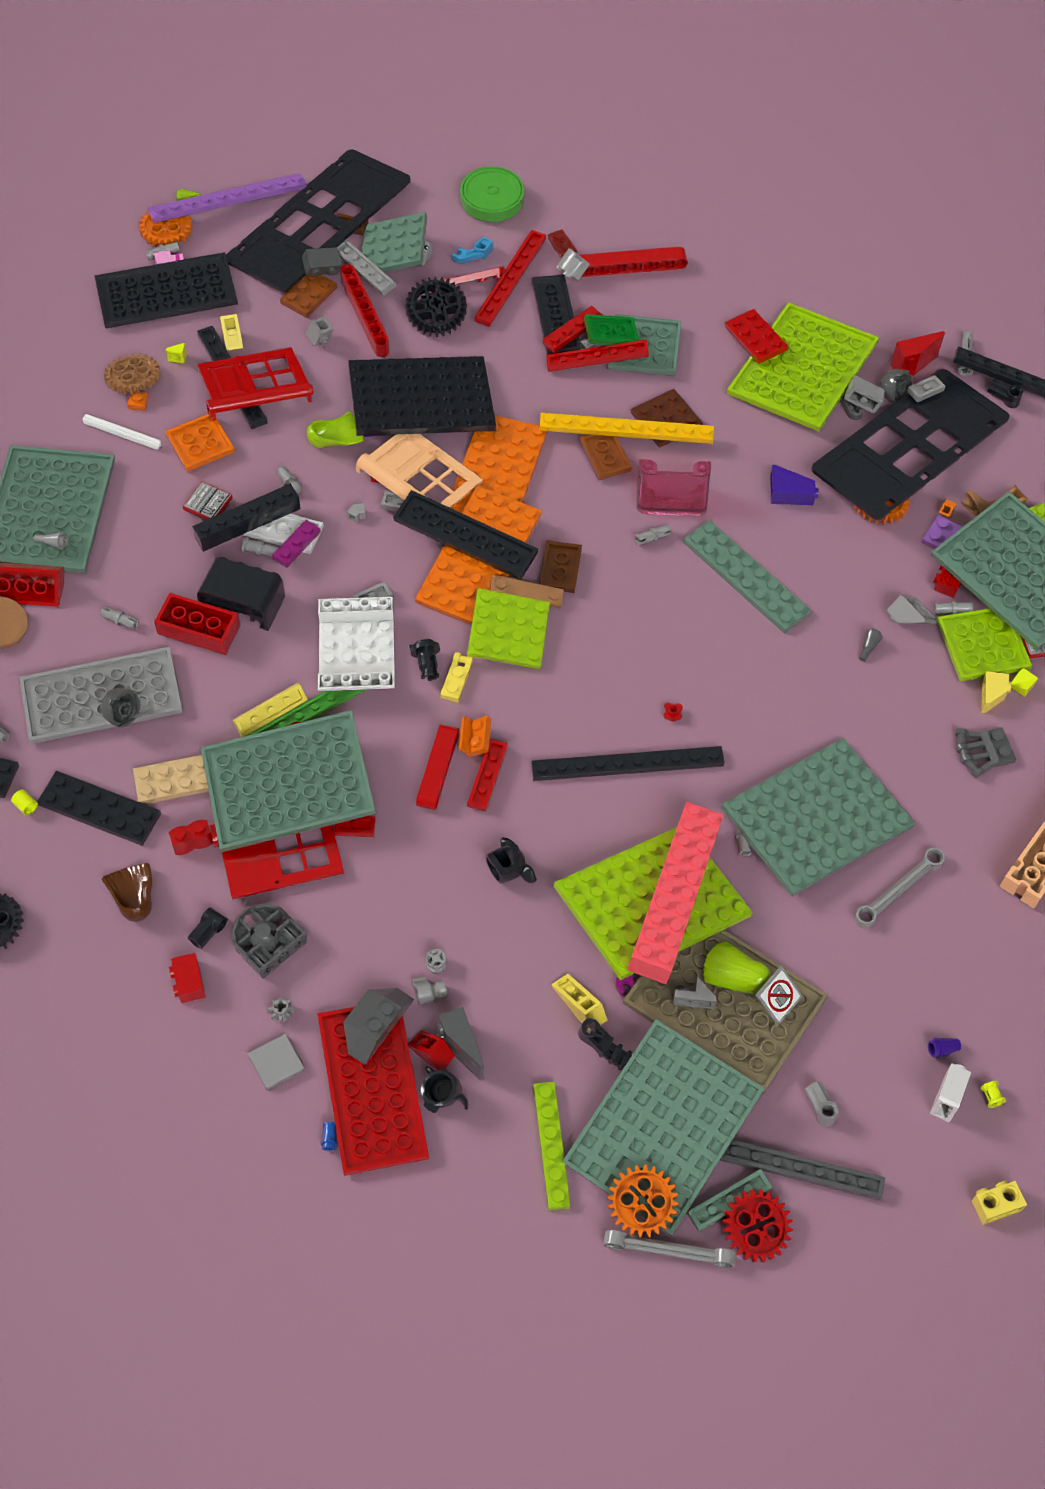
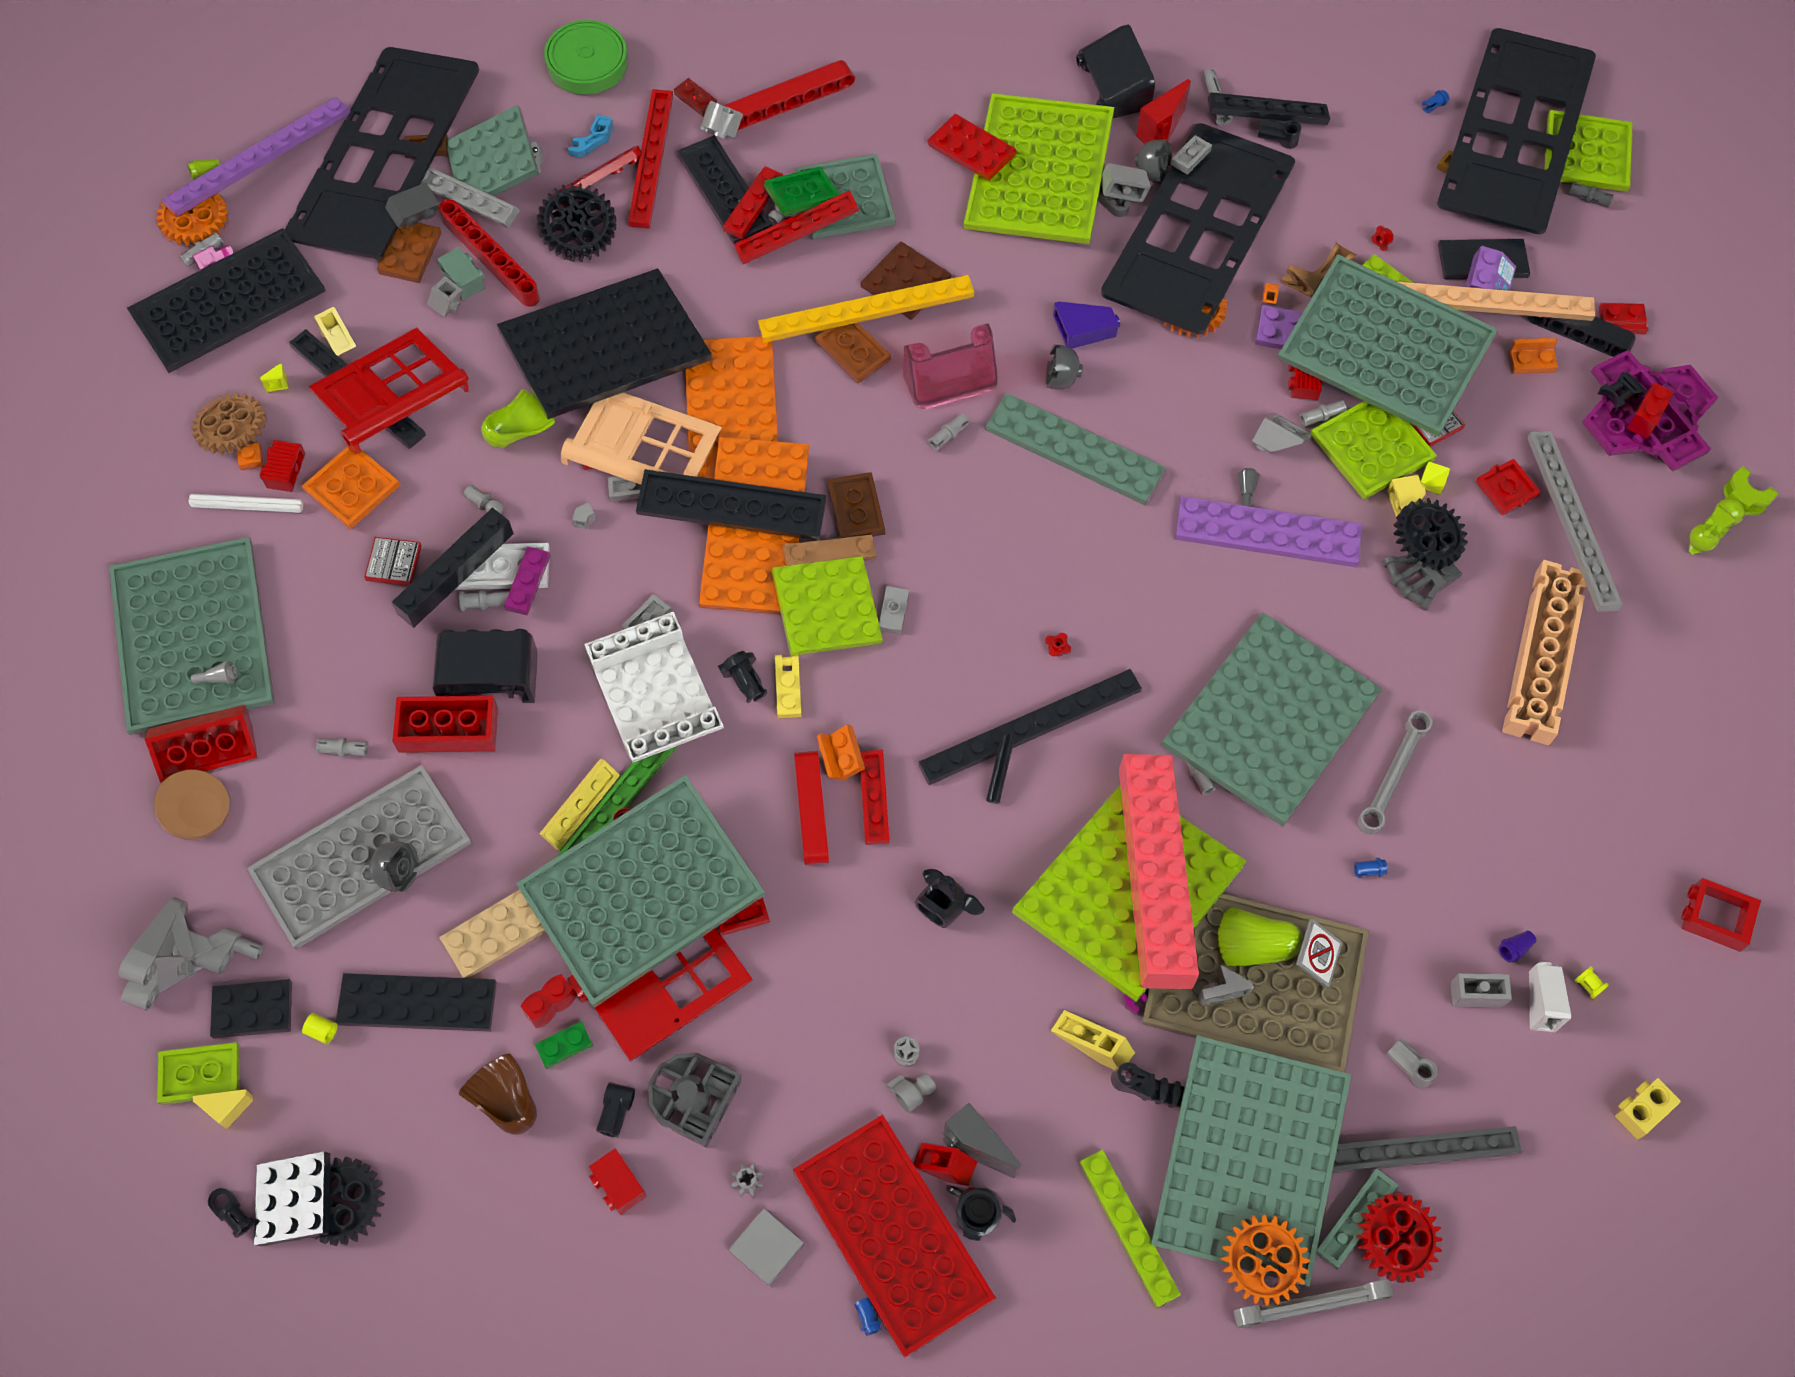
camera: 20 degrees left, 5 degrees up
(157, 413) = (282, 465): none -> red brick
(190, 872) = (563, 1045): none -> green plate
(338, 317) = (461, 271): none -> sand green brick
(373, 1021) = (865, 1154): dark grey wedge -> none
(558, 648) = (893, 609): none -> light grey plate
(590, 785) = (1000, 768): none -> black axle
(760, 513) = (1063, 367): none -> dark grey cylinder
(850, 951) = (1370, 868): none -> blue pin
(873, 681) = (1269, 531): none -> medium lavender plate
(893, 312) = (1119, 71): none -> black windscreen
(898, 1067) = (1480, 990): none -> light grey brick
(1000, 720) = (1430, 533): none -> black gear

